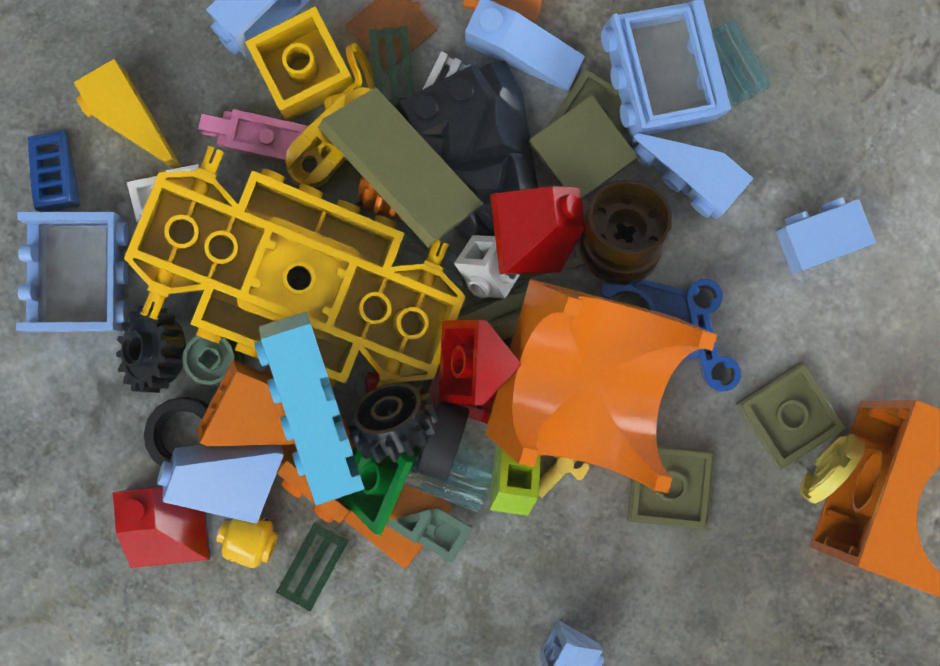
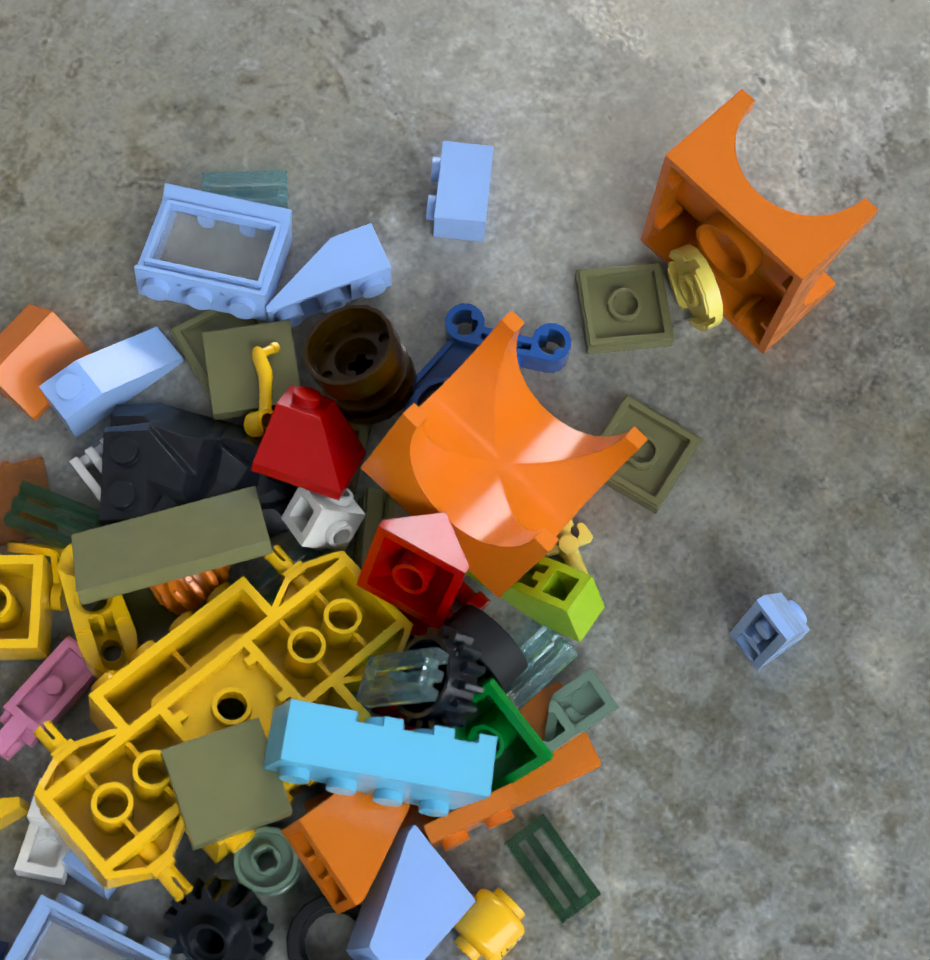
camera: 70 degrees left, 15 degrees down
(234, 303) = (224, 784): none -> olive tile
(381, 414) = (401, 686): none -> clear light blue tile
(580, 161) = (253, 420): none -> yellow piece

